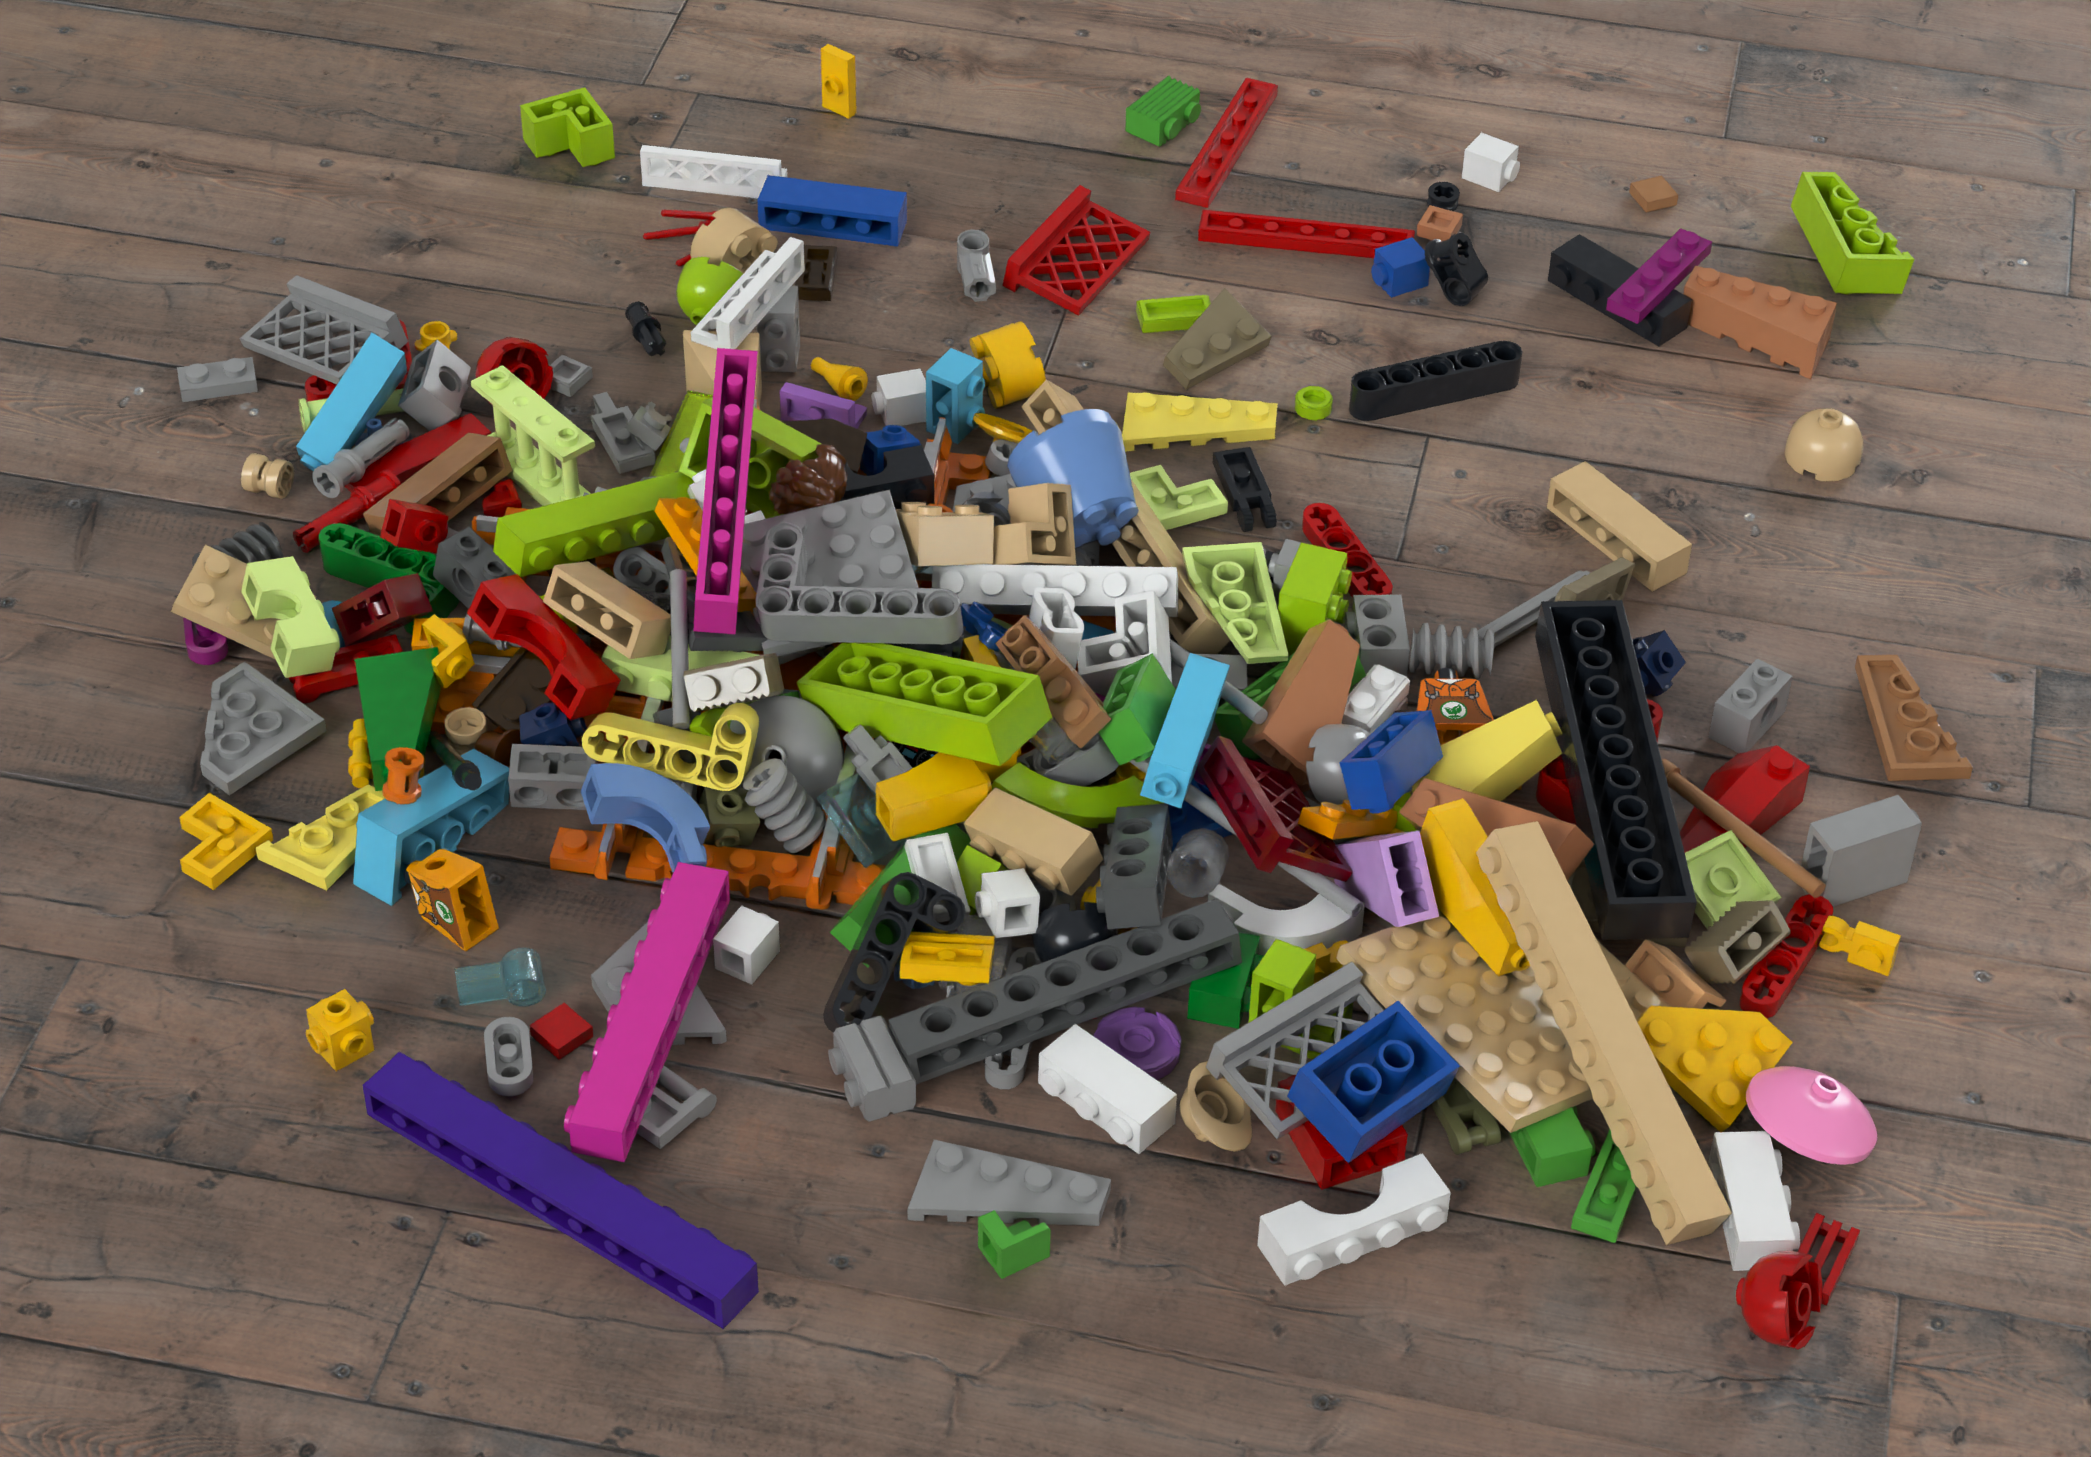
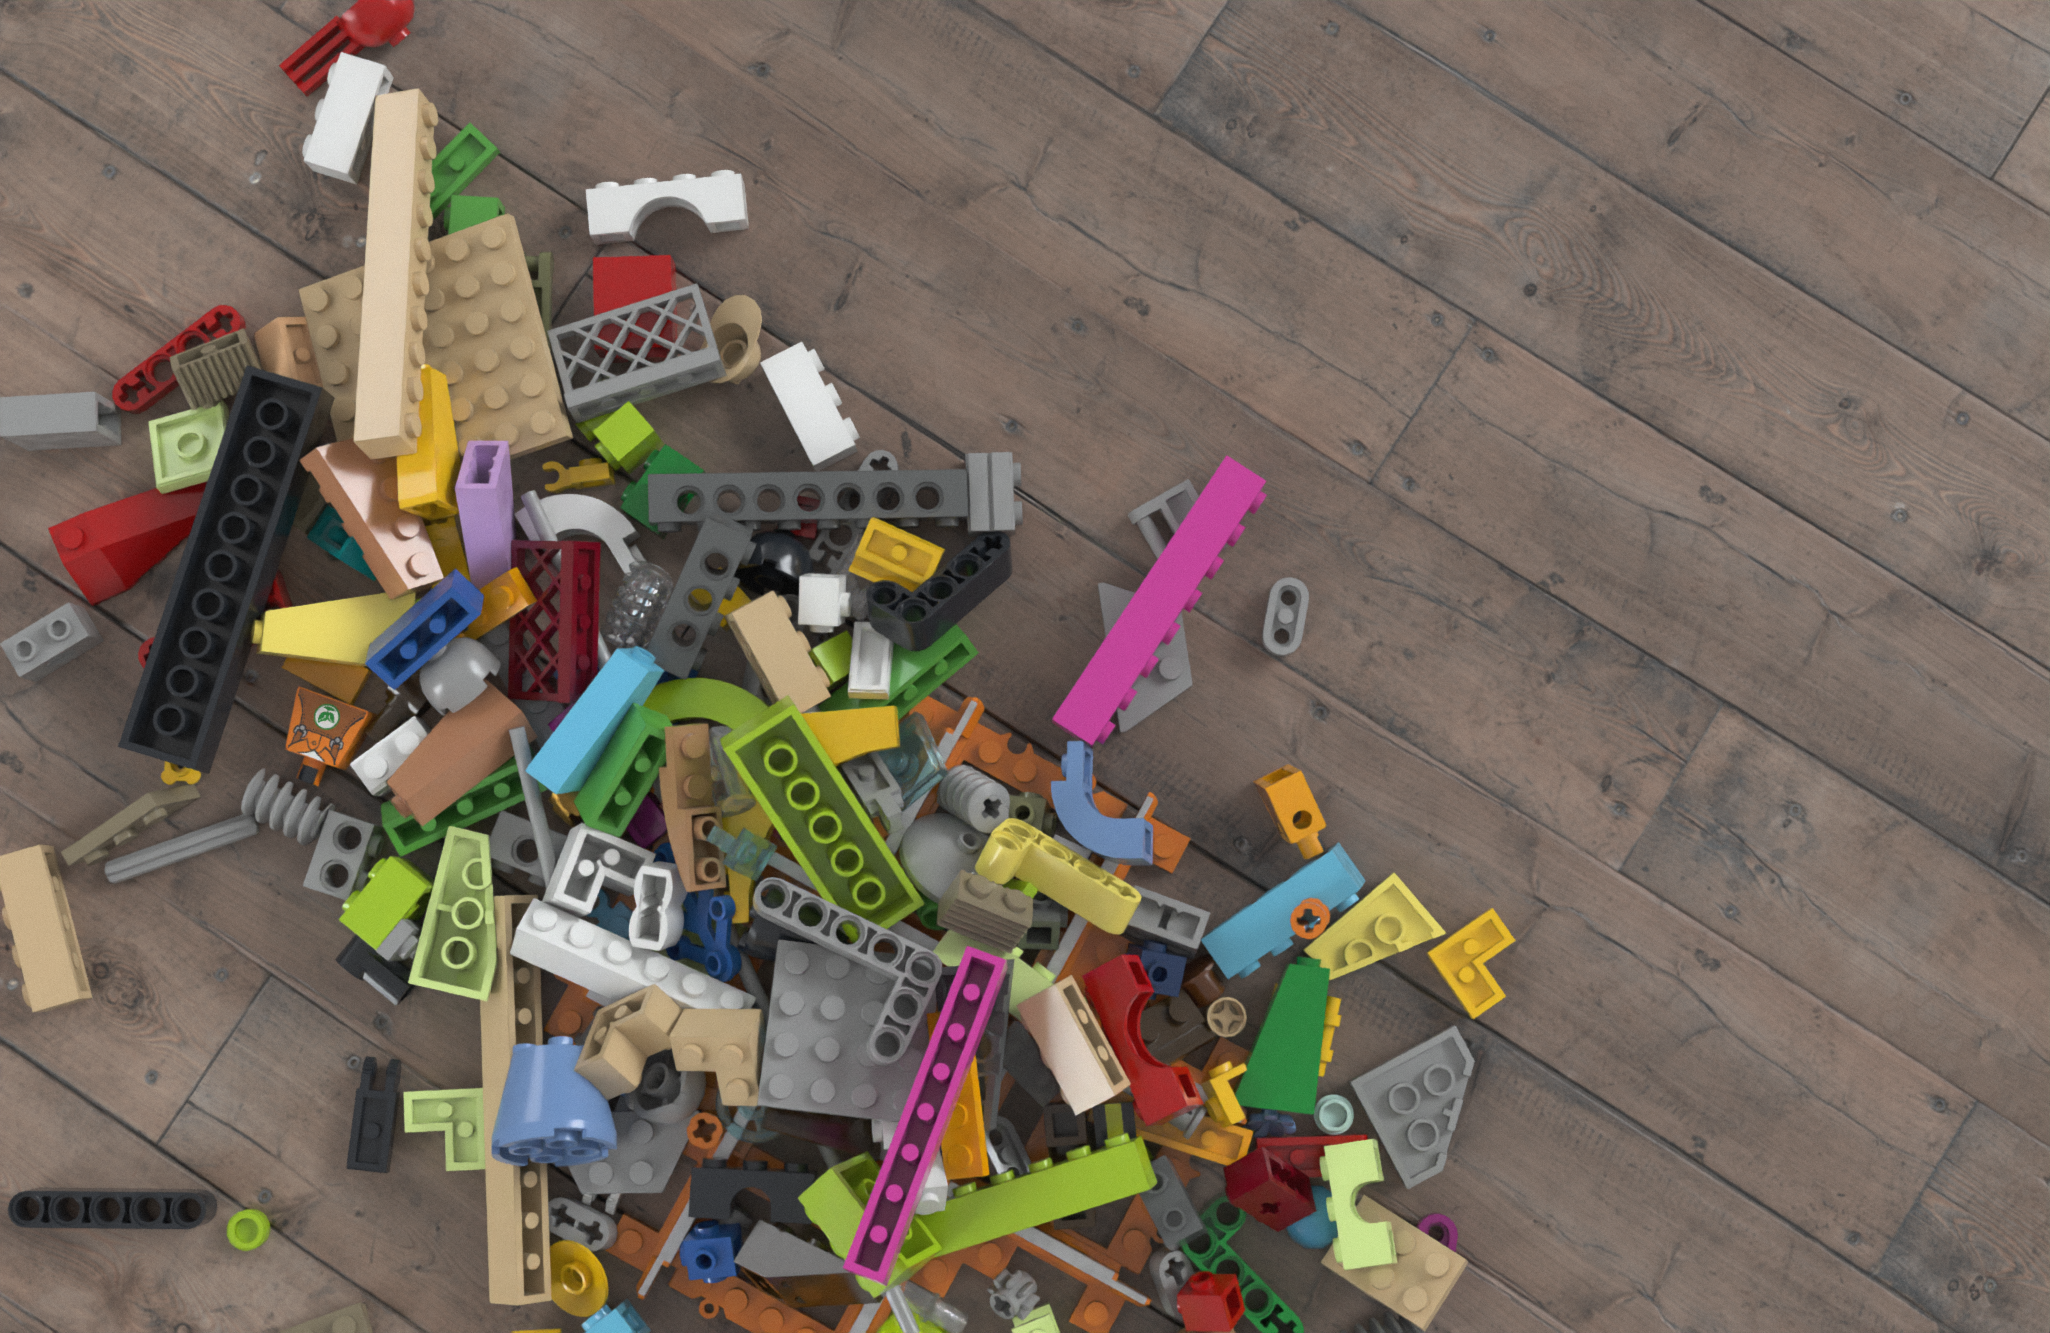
camera: 160 degrees left, 40 degrees up
(334, 701) = (1333, 1114): none -> light aqua plate
(340, 1029) = (1405, 690): yellow brick -> none
(463, 771) = (1261, 871): black bar -> none
(514, 978) = (1260, 702): clear light blue piece -> none
(561, 1031) = (1232, 636): red tile -> none
(562, 1189) = (1282, 460): dark purple brick -> none
(679, 647) = (1022, 970): light grey bar -> none
(746, 944) = (1050, 670): white brick -> none
(810, 482) = (820, 1148): reddish brown hair -> none
(974, 1182) = (934, 348): light grey wing -> none
(997, 650) = (746, 853): none -> clear light blue plate
(1013, 1246) = (940, 284): bright green panel -> none
(1143, 1039) = (763, 447): medium lavender tile -> none
(1169, 418) = (389, 1246): light yellow wing -> none
(1337, 530) = (328, 985): red beam -> none
(1373, 1081) = (605, 282): blue brick -> none
(1657, 661) = (107, 720): dark blue brick -> none
(1712, 1055) = (303, 261): yellow plate -> none
(1742, 831) = (147, 485): medium nougat bar -> none
(1812, 1114) = (271, 177): bright pink dish -> none
(1866, 944) = (109, 333): yellow plate -> none

